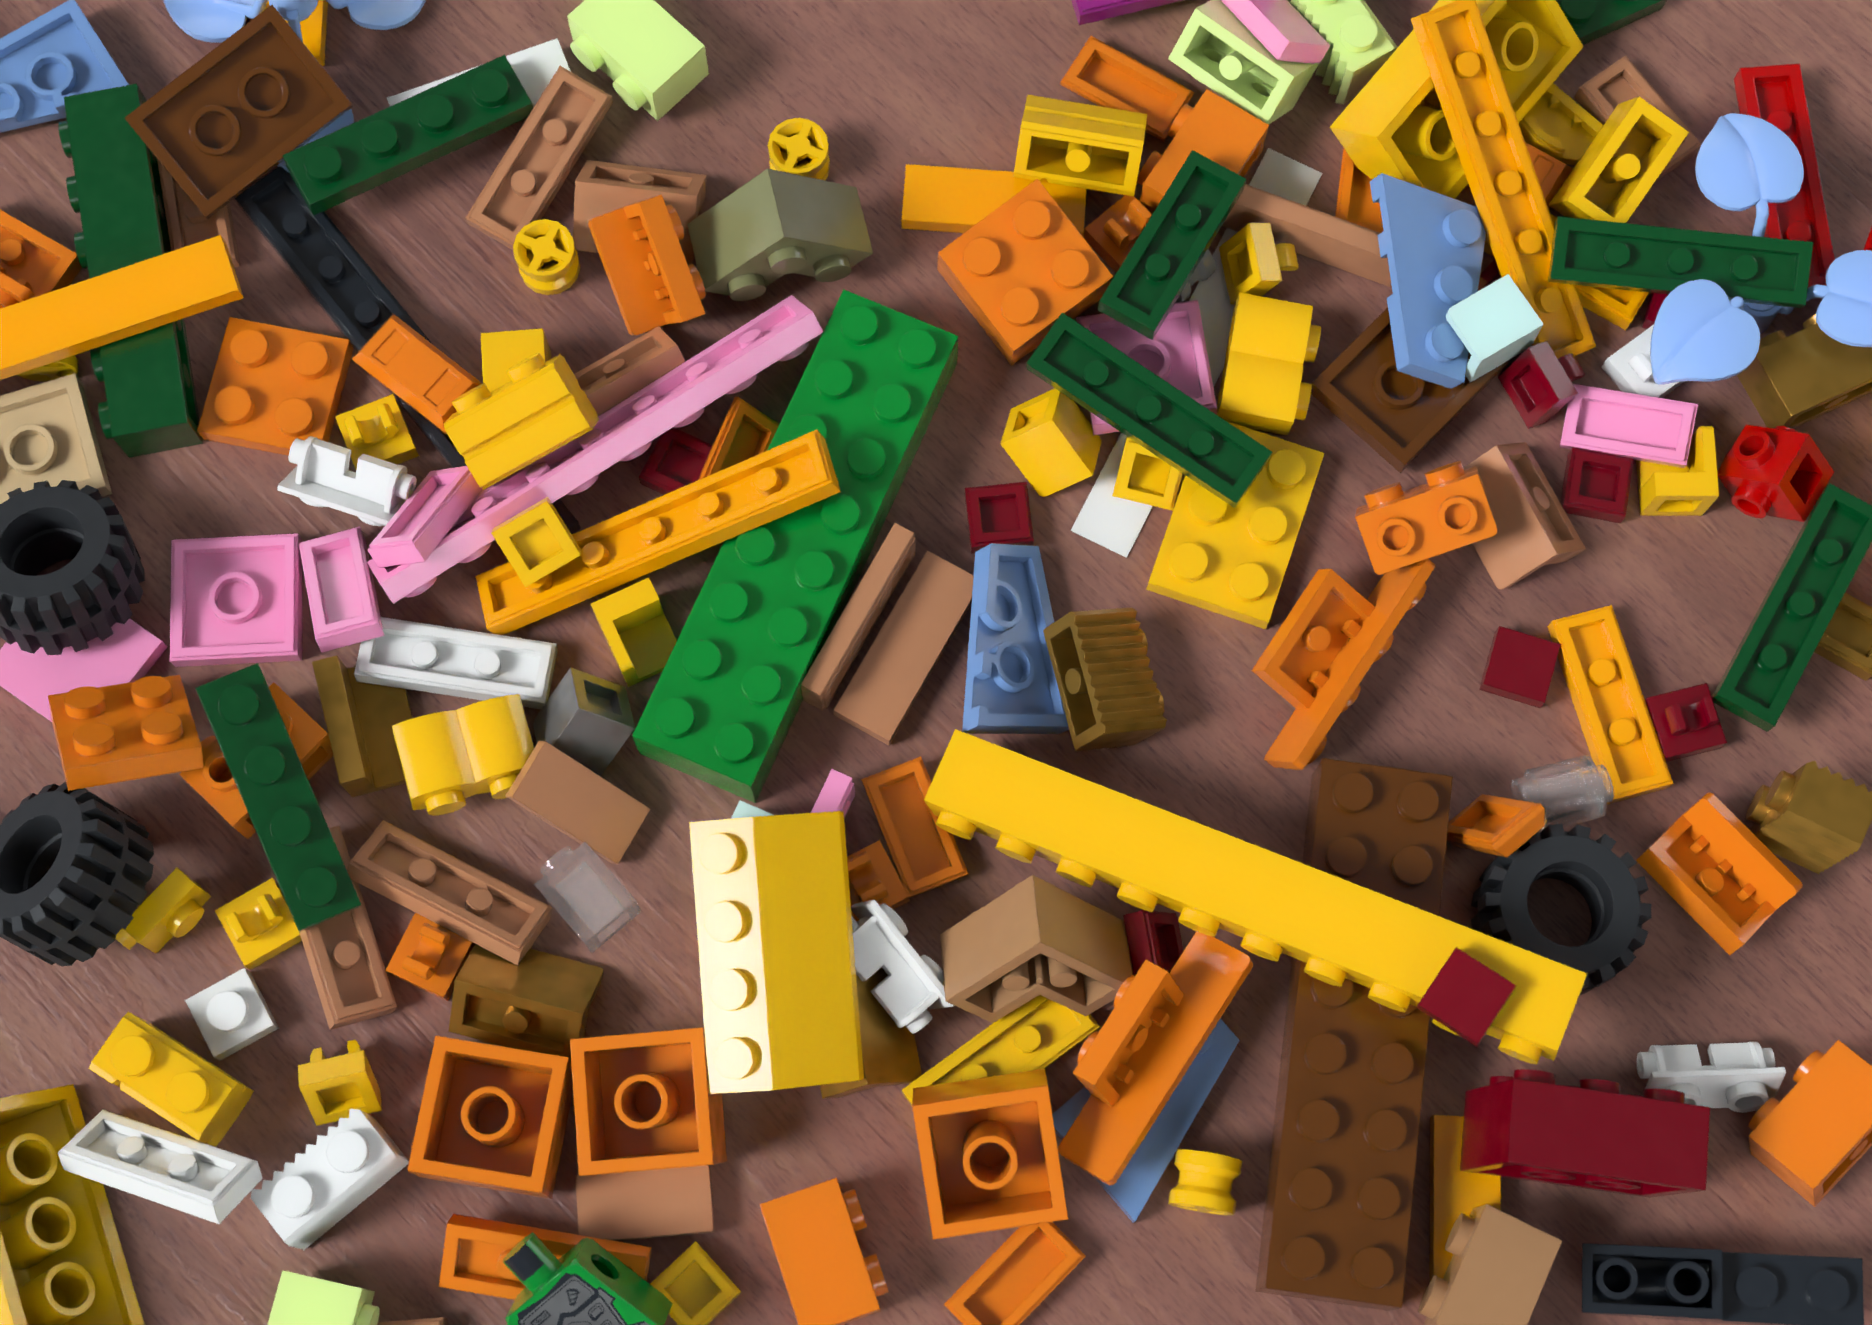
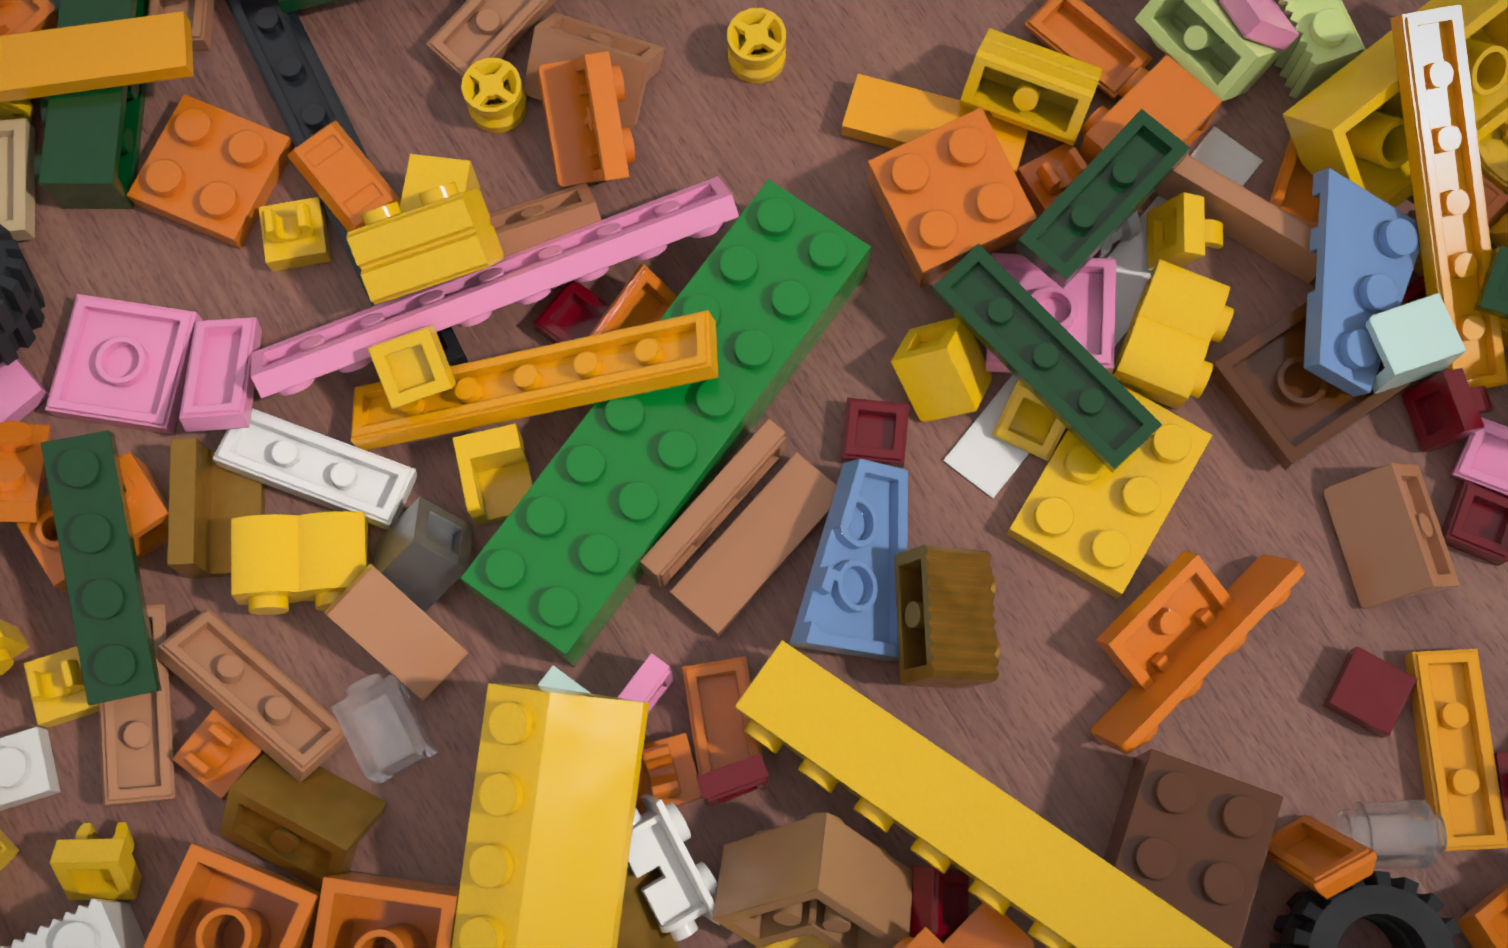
camera: 15 degrees right, 0 degrees up
(325, 481) = (275, 287): white hinge -> none
(425, 517) = (312, 321): bright pink tile -> none
(779, 228) = (717, 108): olive brick -> none
(936, 871) = (733, 780): none -> dark red tile
(1425, 520) = (1306, 523): orange bracket -> none

